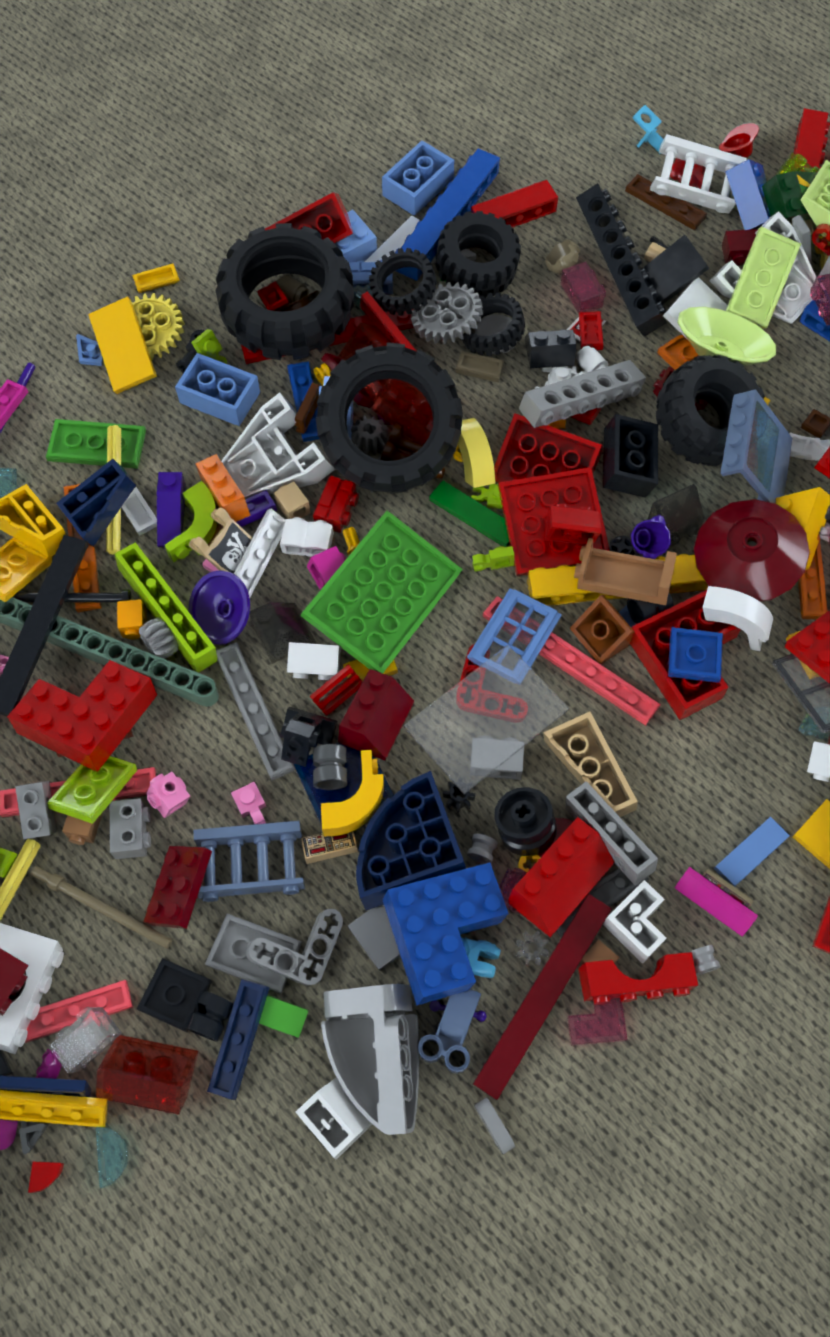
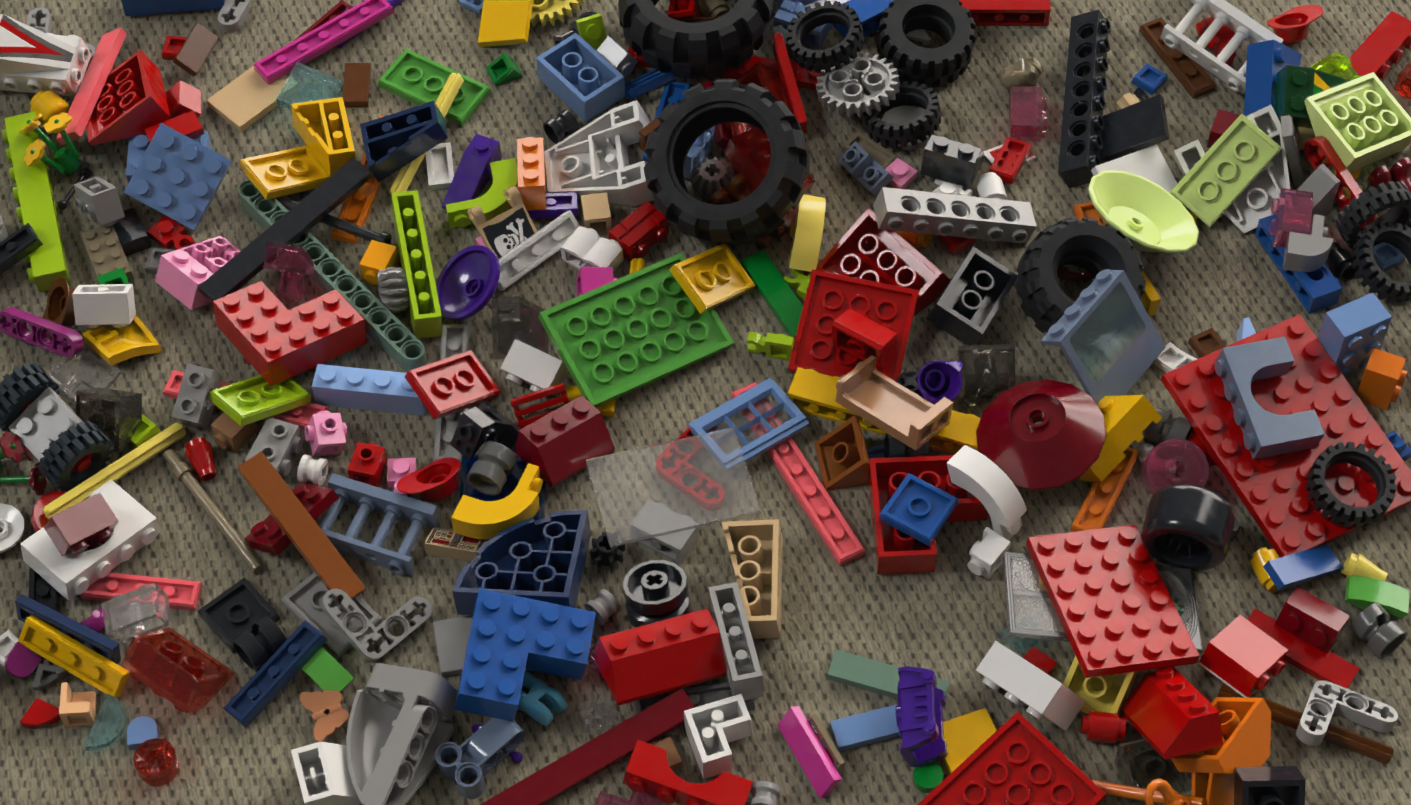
camera: 25 degrees right, 10 degrees down
(29, 466) = (357, 84): none -> reddish brown tile
(60, 653) = (293, 263): none -> clear pink brick
(67, 863) = (201, 457): none -> red cone
(74, 1151) = (77, 707): none -> light nougat panel
(146, 1148) = (141, 730): none -> medium blue tile
(147, 407) = (504, 70): none -> green slope
(161, 1173) = (158, 750): none -> clear red wheel
(172, 832) = (312, 470): none -> white wheel
(184, 737) = (365, 390): none -> light blue brick
(194, 896) = (299, 526): none -> dark orange tile
(217, 806) = (368, 463): none -> red brick
(222, 439) = (563, 125): none -> black wheel
(239, 359) = (617, 56): none -> brick
(254, 704) = (452, 384): none -> tile
(273, 372) = (647, 82): none -> blue tile
(281, 797) = (433, 481): none -> red piece
(305, 1064) = (318, 705): none -> nougat animal
(420, 521) = (712, 277): none -> yellow tile
(485, 380) = (865, 168): none -> sand blue slope
(512, 375) = (902, 174): none -> bright pink plate
(655, 226) = (1149, 79): none -> blue tile
(738, 808) = (869, 674): none -> sand green tile
(757, 666) = (988, 554): none -> white brick
(791, 832) = (920, 716): none -> dark purple piece
(814, 878) = (927, 777): none -> green tile

